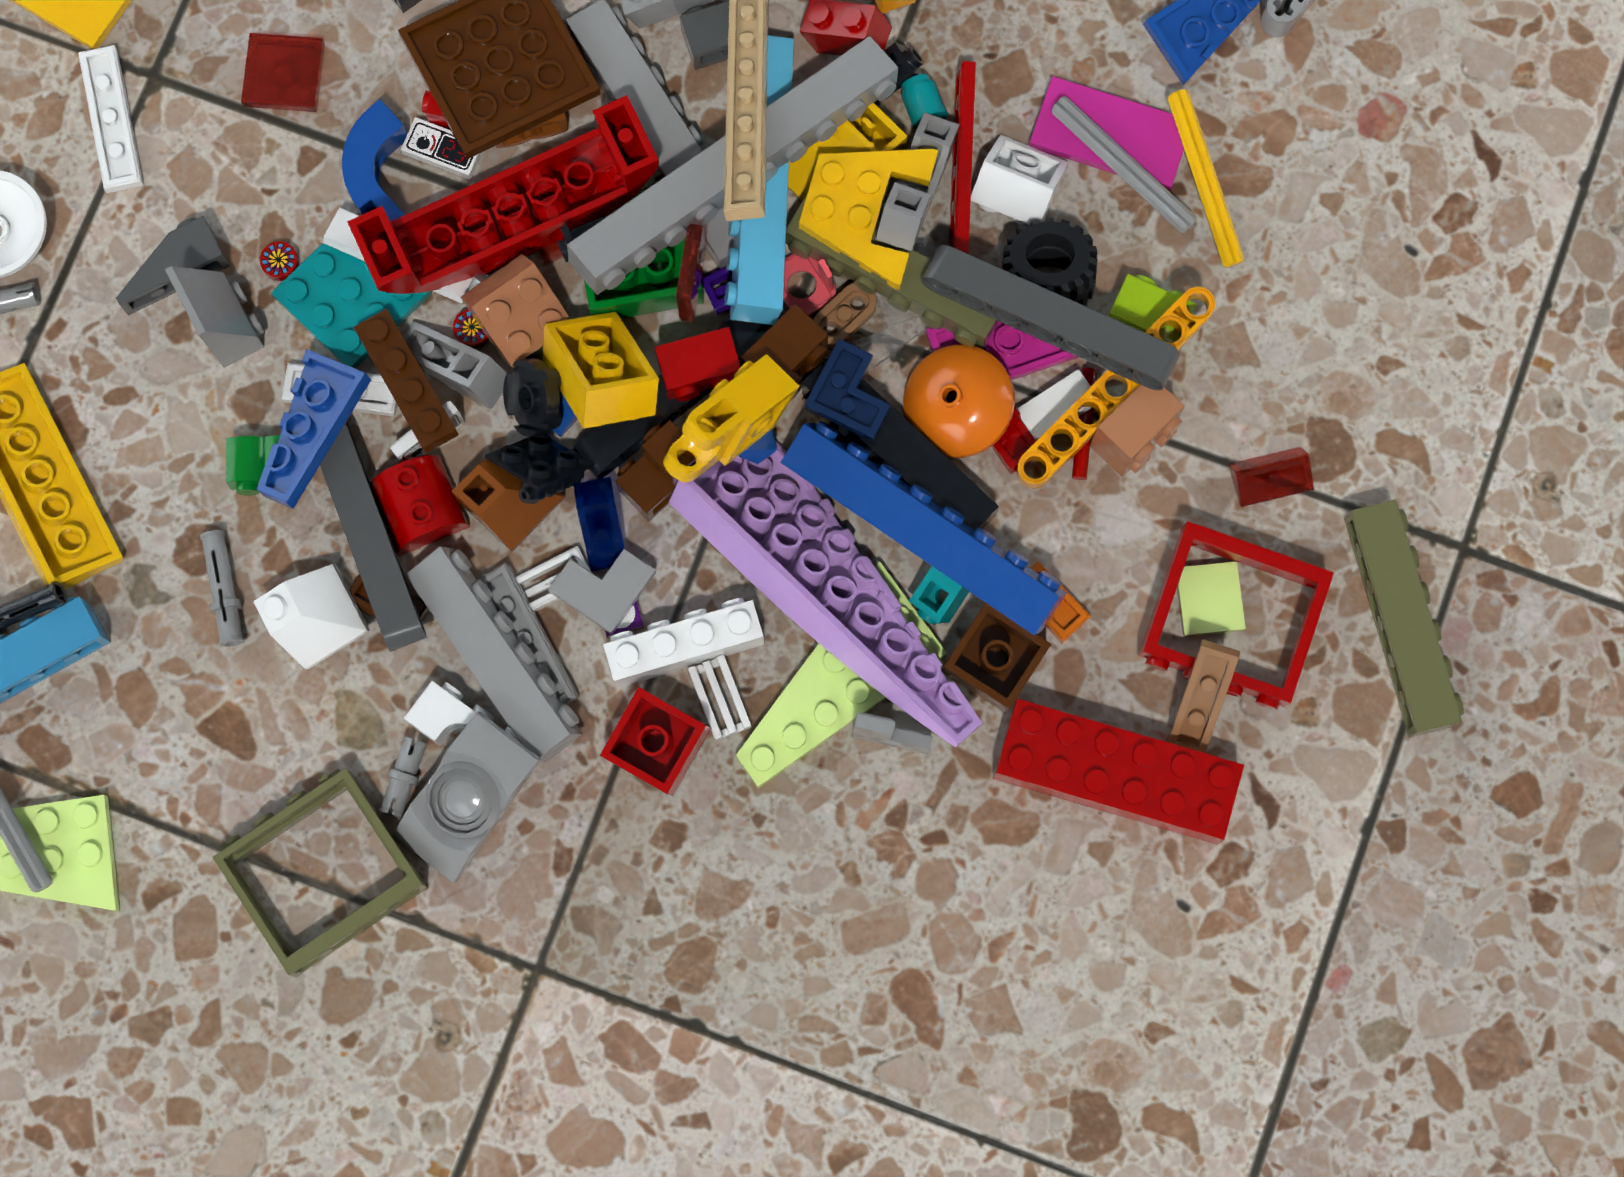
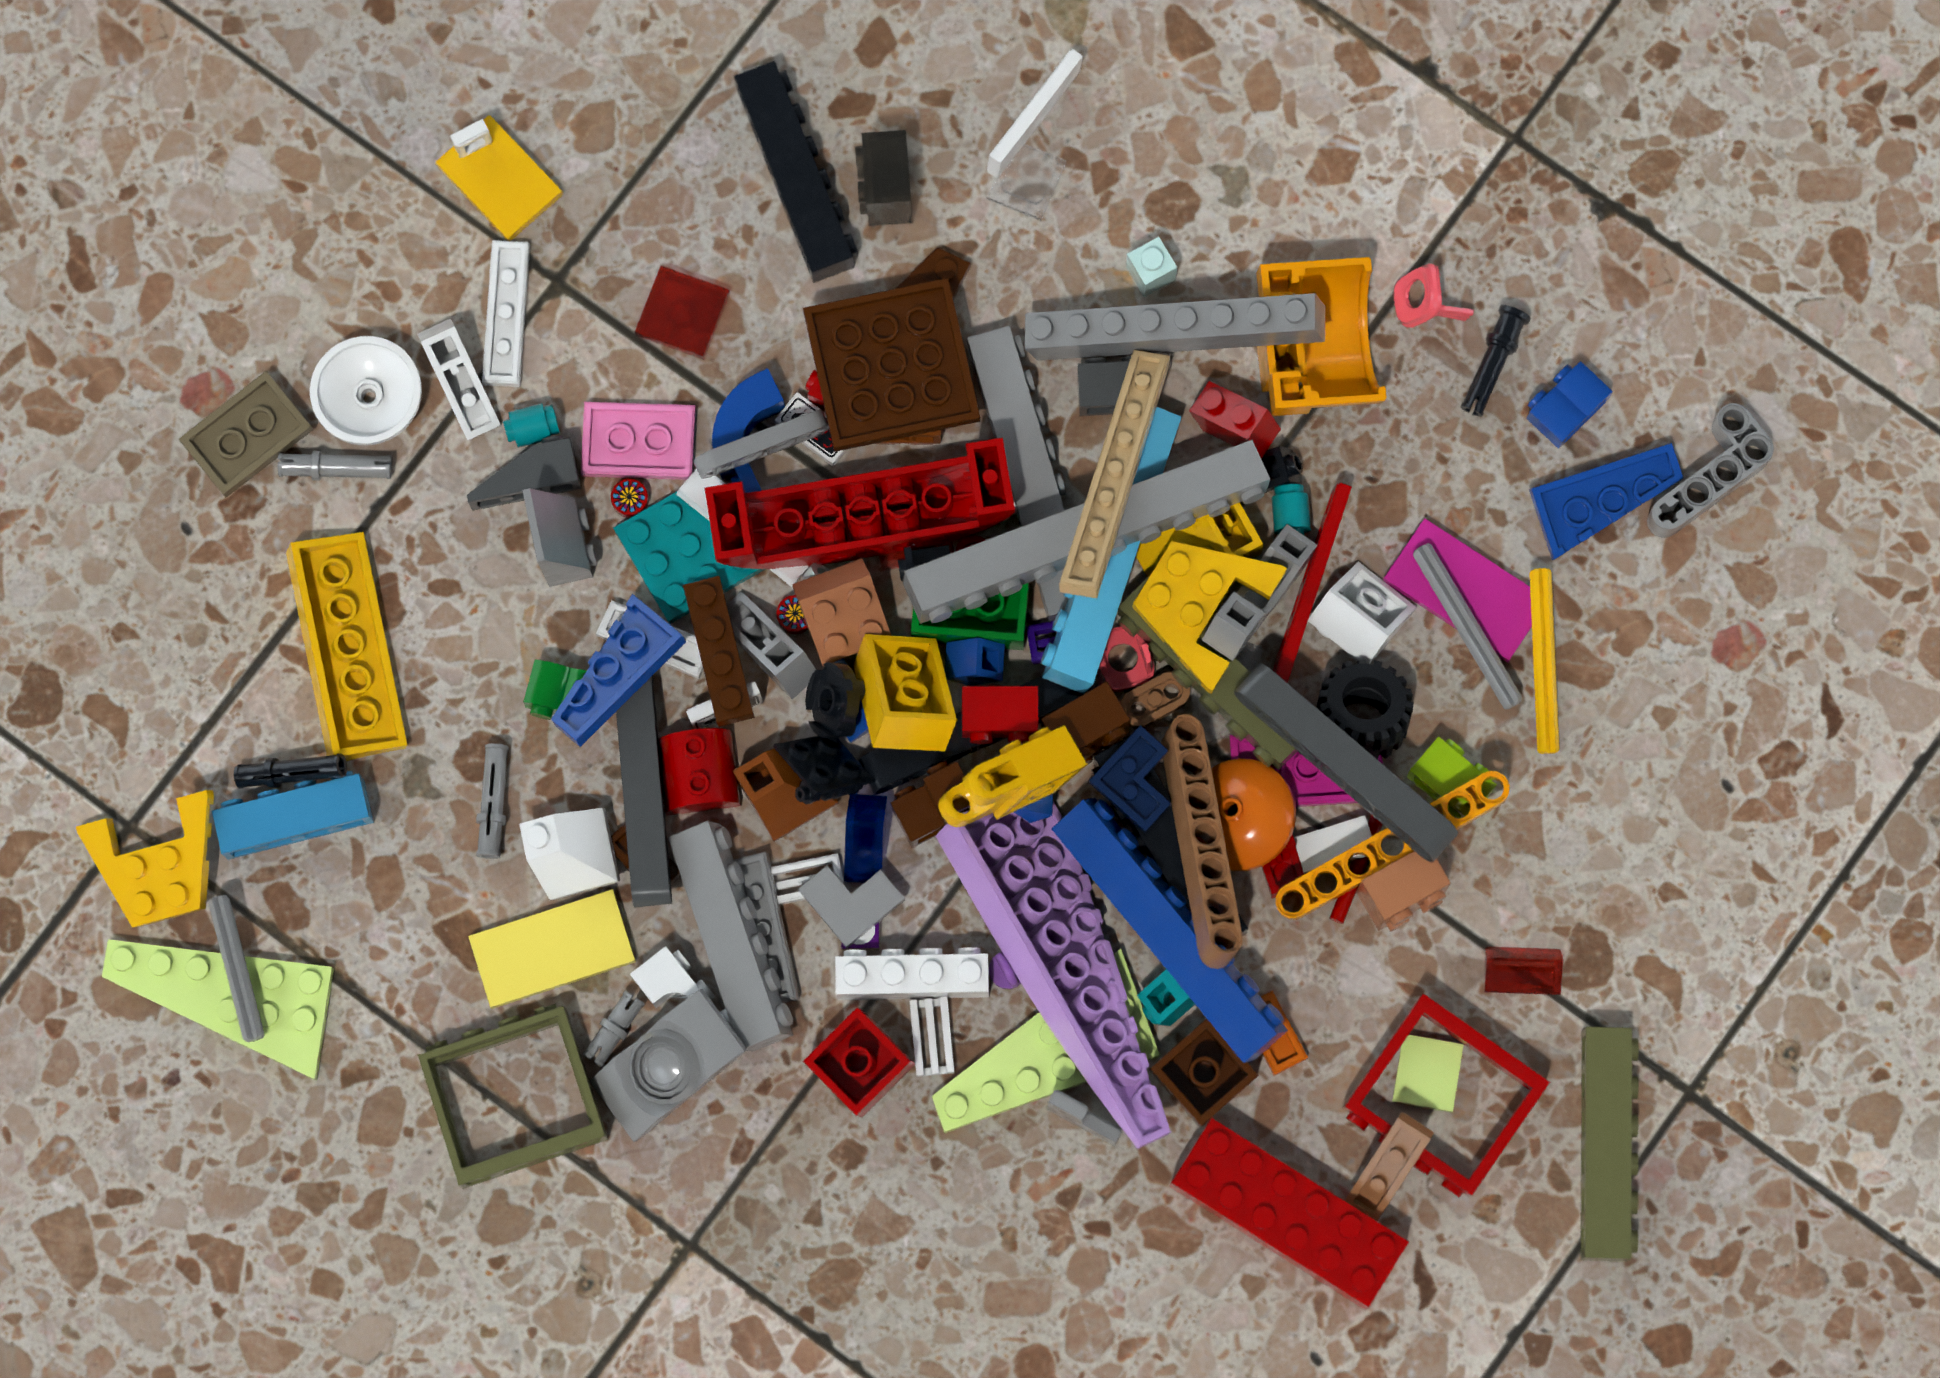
camera: 20 degrees right, 0 degrees up
(80, 192) = (458, 379): none -> white slope
(162, 215) = (531, 424): none -> teal brick
(272, 204) = (638, 440): none -> bright pink tile
(320, 716) = (552, 949): none -> light yellow tile
(392, 171) = (761, 444): none -> light grey beam
(657, 324) = (974, 661): none -> blue brick
(691, 272) = (1015, 626): clear red tile -> none
(771, 616) = (1002, 973): none -> medium lavender tile
(932, 434) = (1194, 854): none -> medium nougat beam

